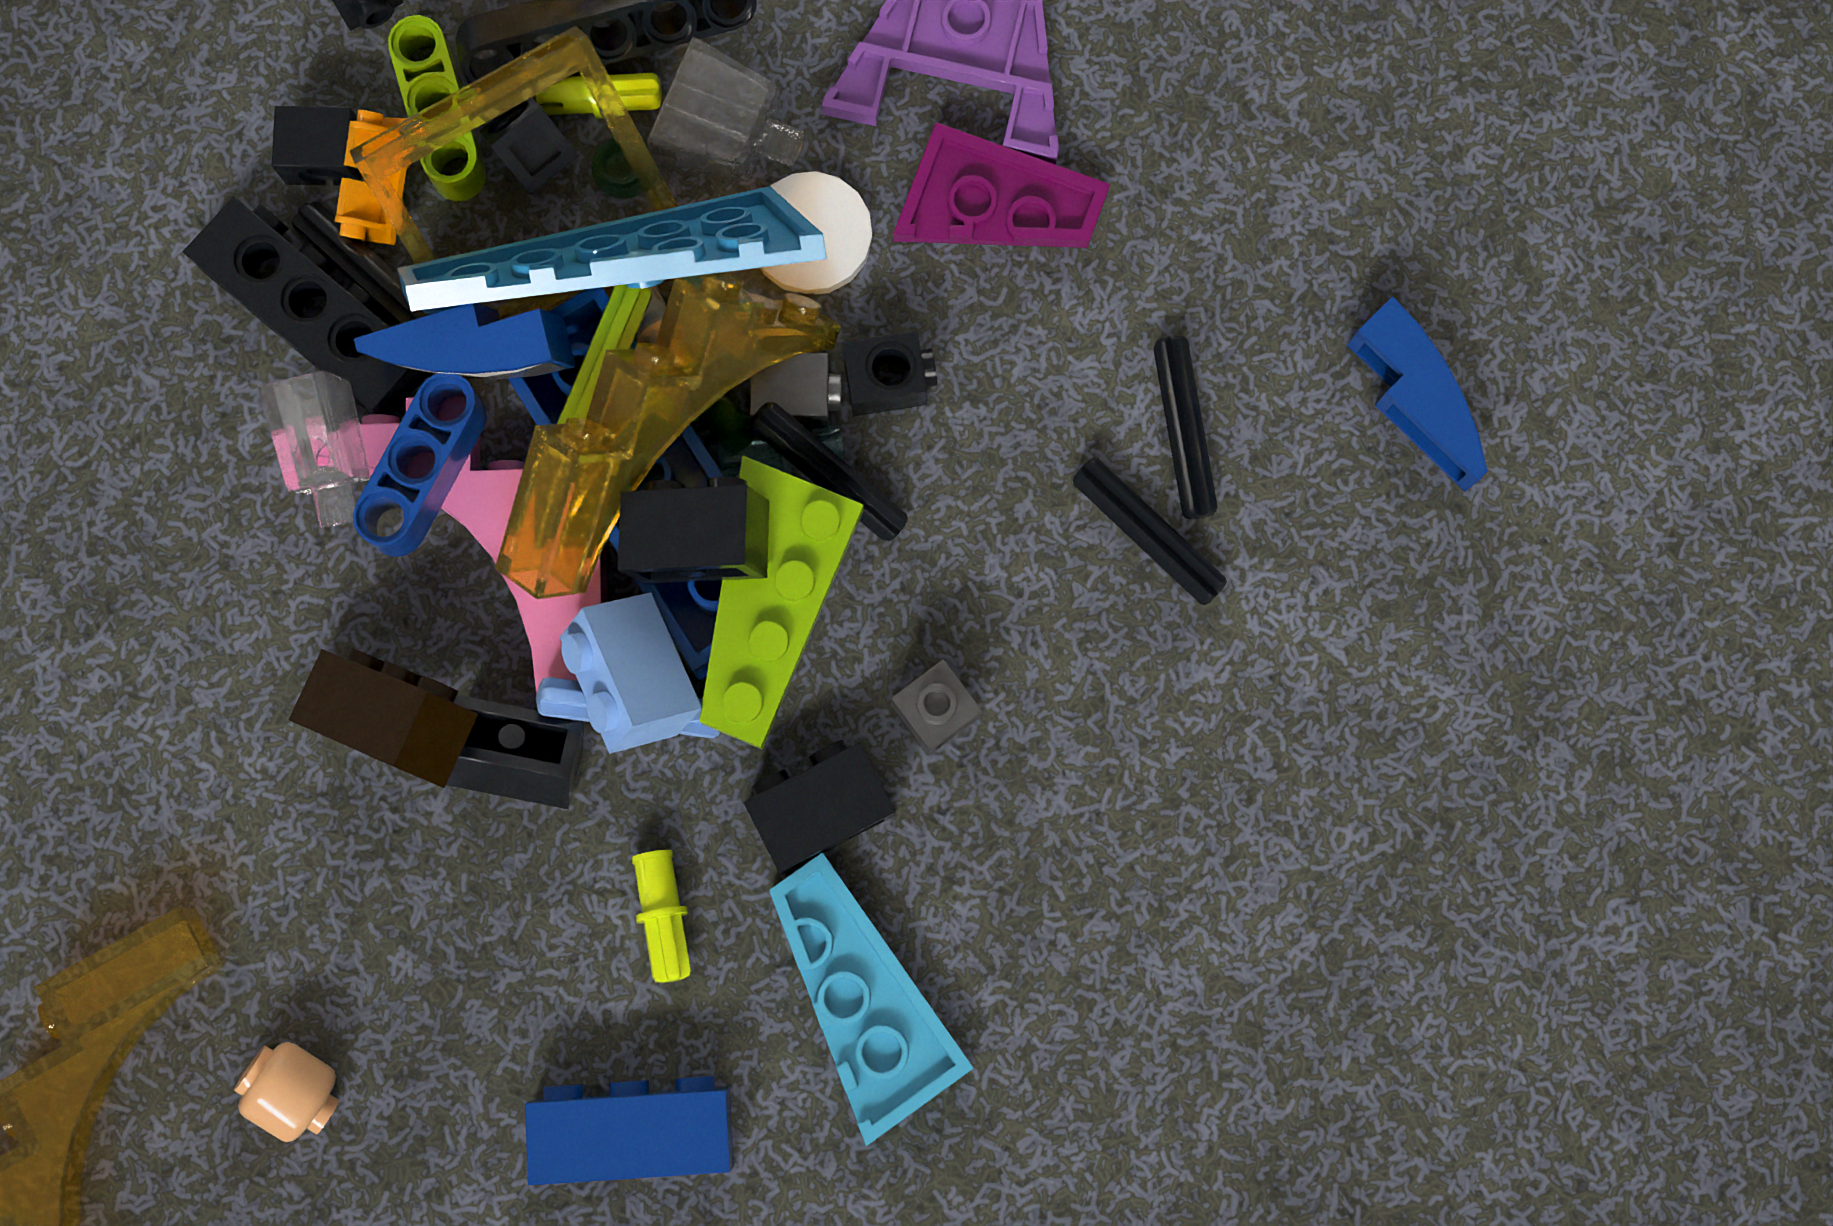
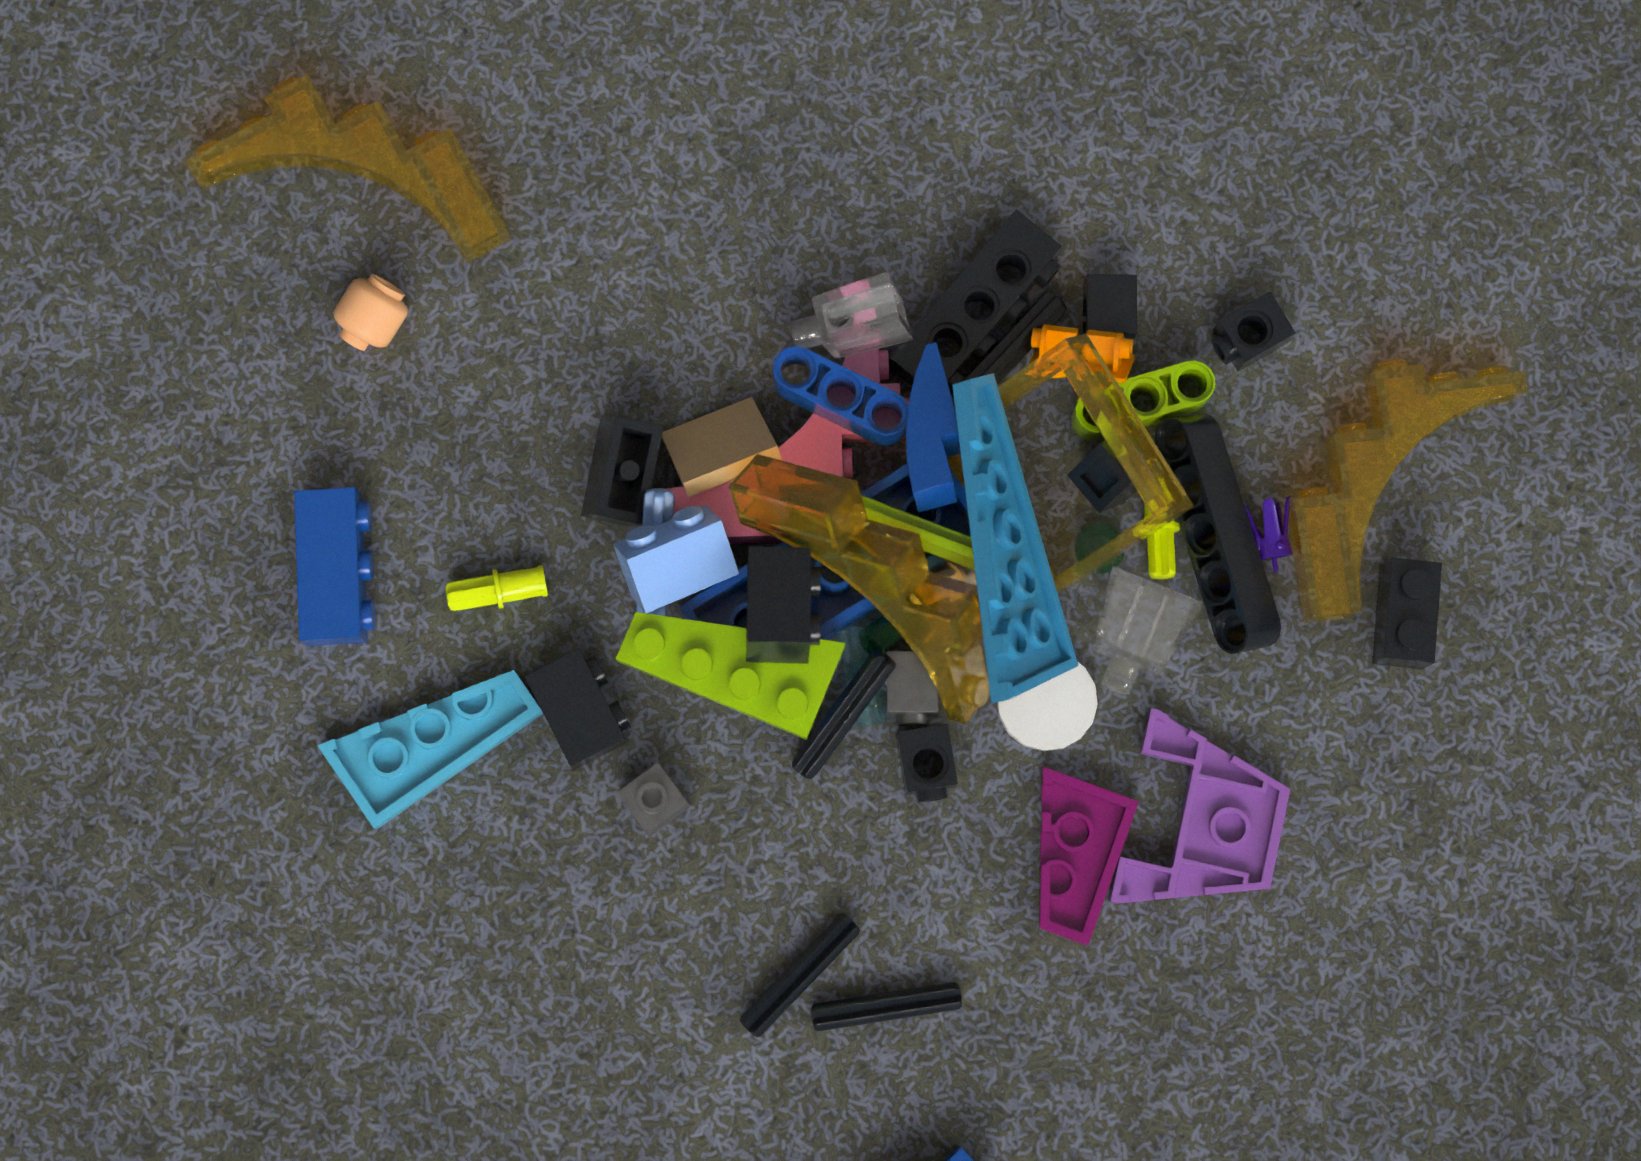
camera: 90 degrees right, 0 degrees up
(385, 713) = (646, 374): dark brown brick -> none
(482, 625) = (718, 445): none -> tan tile

